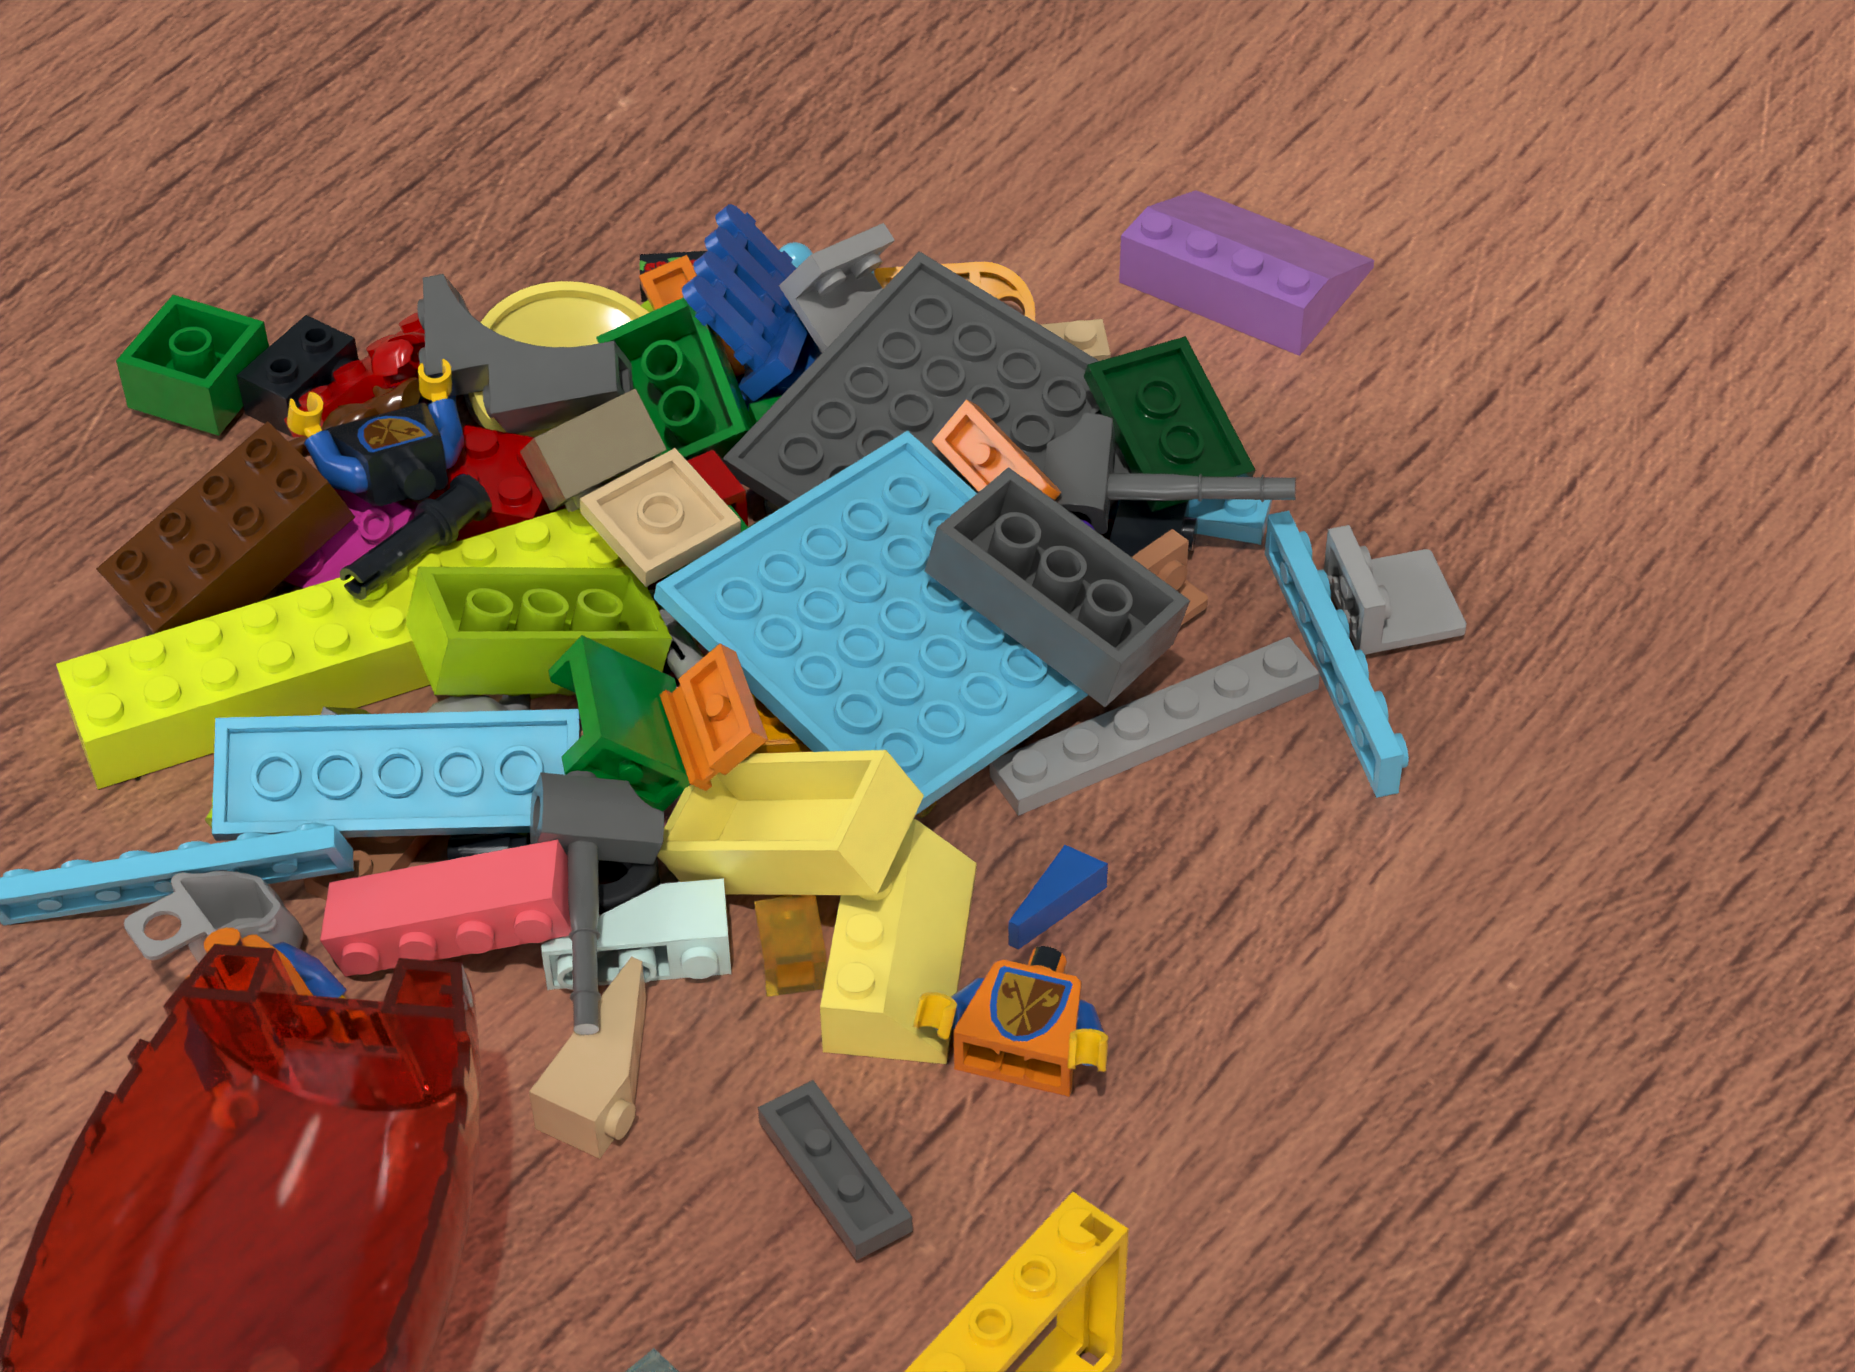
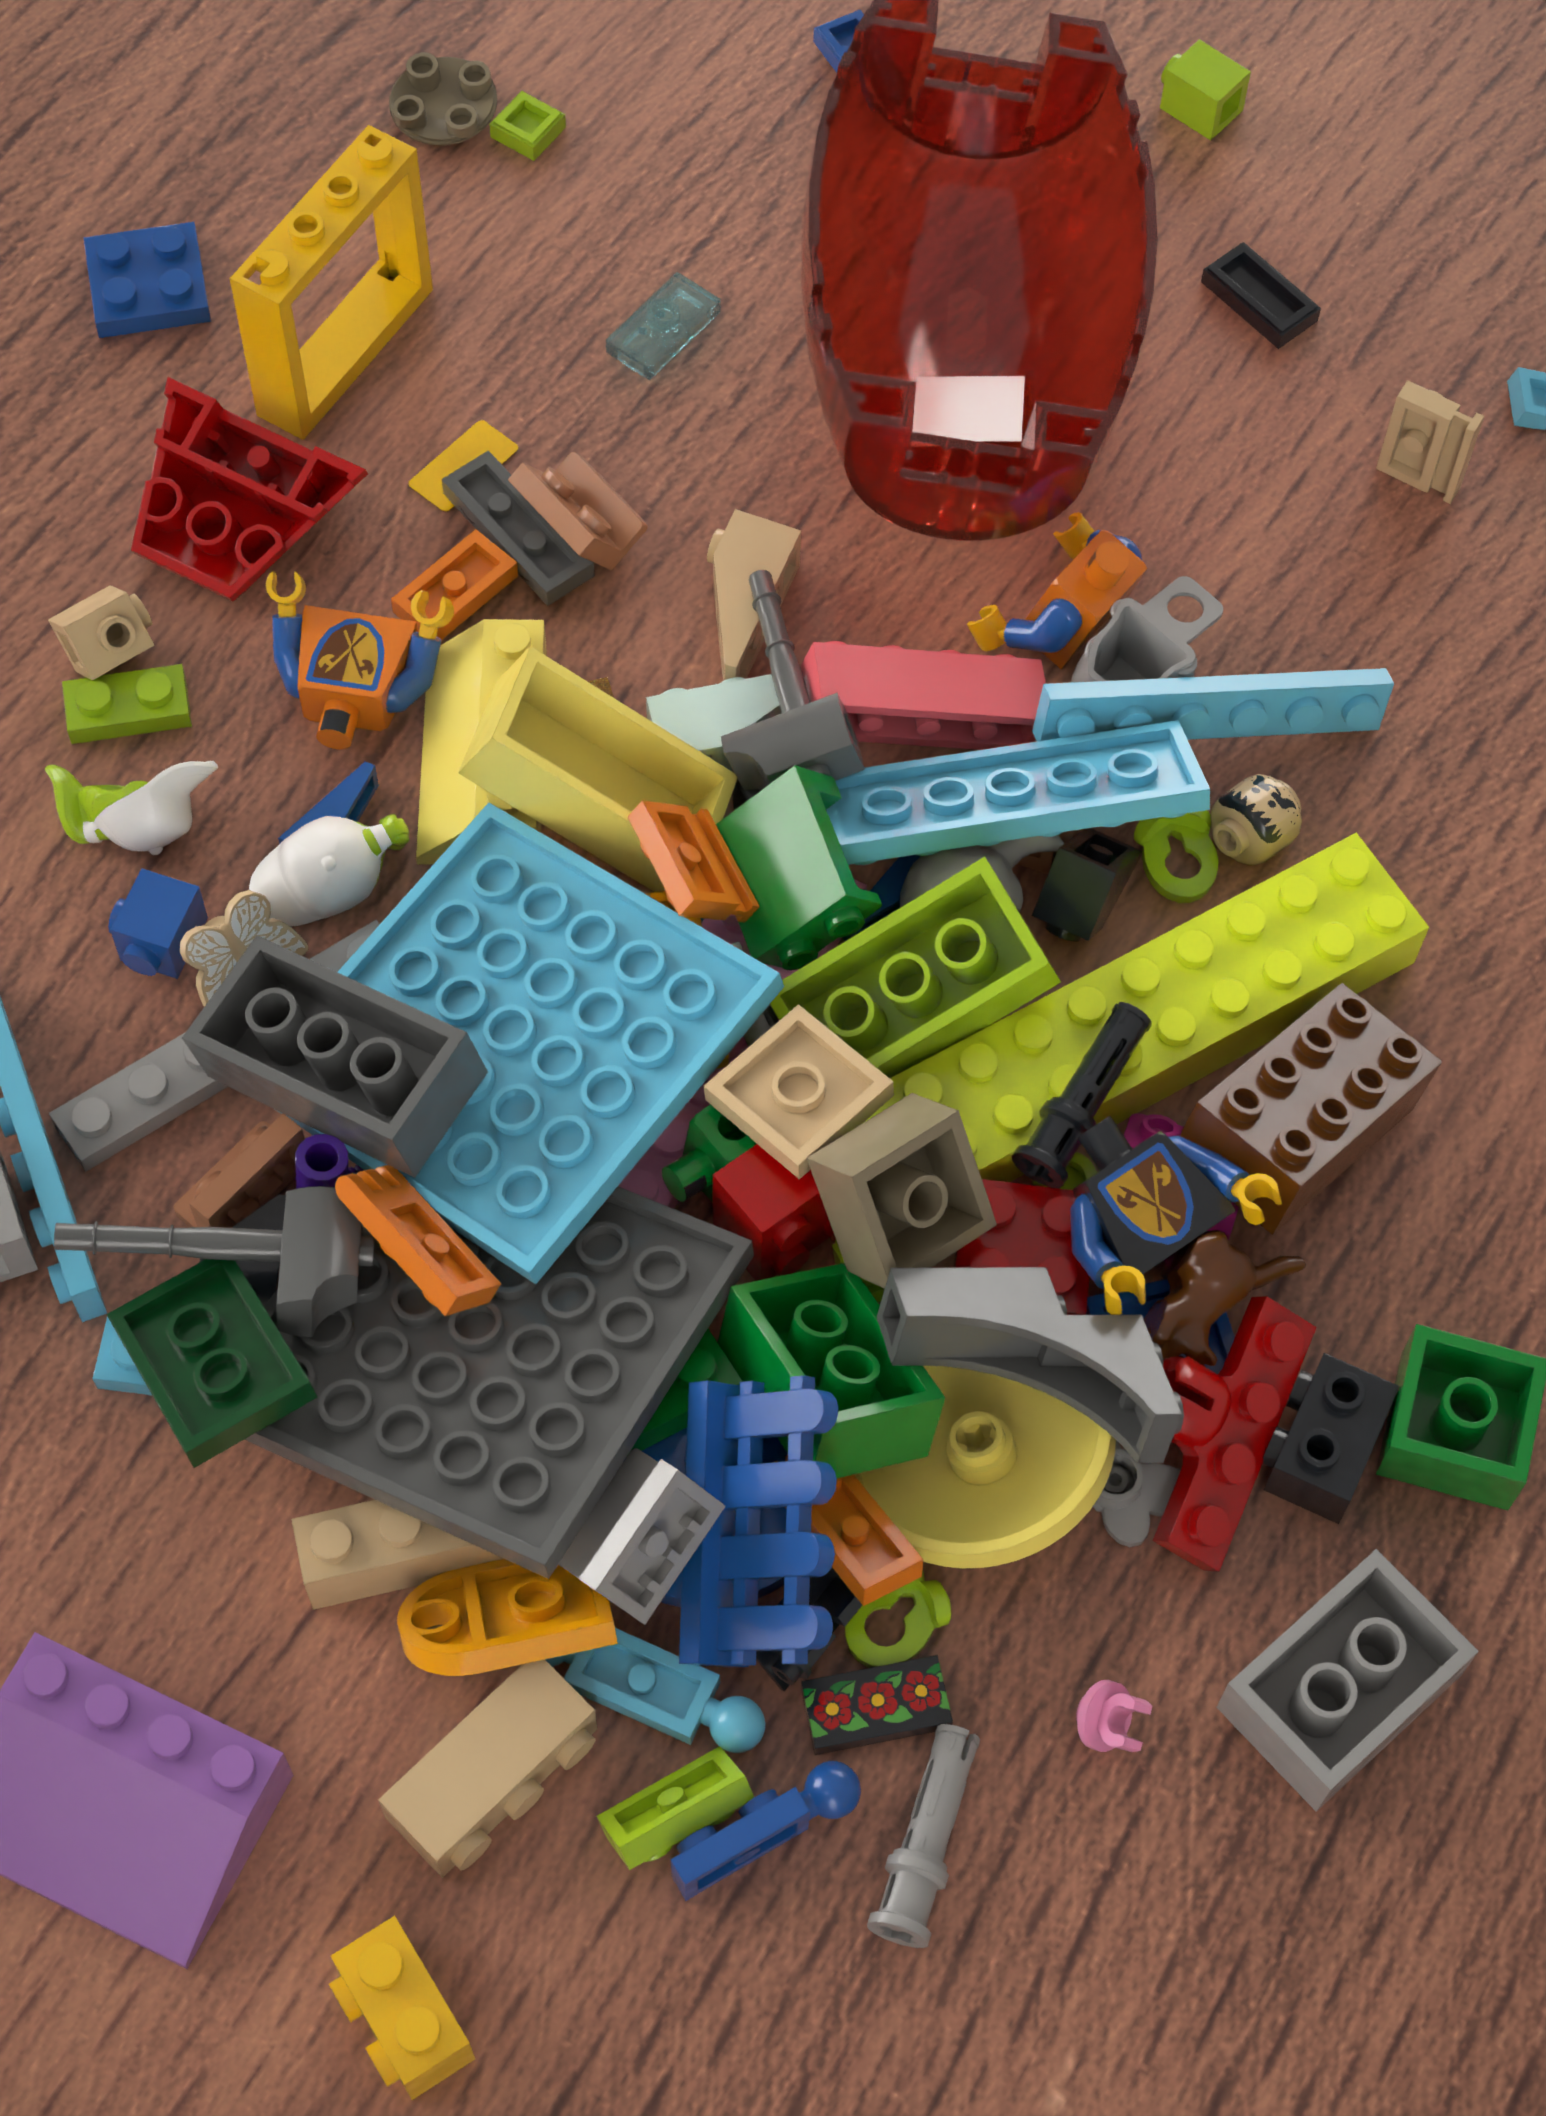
camera: 170 degrees right, 15 degrees up
(165, 806) = (1256, 819): none -> tan head
(302, 1233) = (970, 407): none -> white sticker
(351, 235) = (1346, 1679): none -> light grey brick
(522, 240) = (1106, 1716): none -> bright pink plate
(684, 189) = (918, 1865): none -> light grey pin
(768, 1162) = (582, 509): none -> nougat bracket
(803, 203) = (765, 1824): none -> blue plate
(843, 218) = (675, 1808): none -> lime plate
(885, 1277) = (467, 447): none -> yellow sticker
(911, 1108) = (465, 575): none -> orange plate
(1002, 231) = (490, 1766): none -> tan brick
(1047, 829) = (326, 867): none -> white hair
(1048, 143) = (403, 2008): none -> yellow brick
(1152, 783) = (225, 938): none -> tan animal
(1174, 1196) = (230, 494): none -> red wedge
(1224, 807) = (153, 922): none -> blue brick
(1243, 905) = (133, 815): none -> white hair
(1262, 1033) = (126, 704): none -> lime plate
(1286, 1070) = (103, 631): none -> tan brick

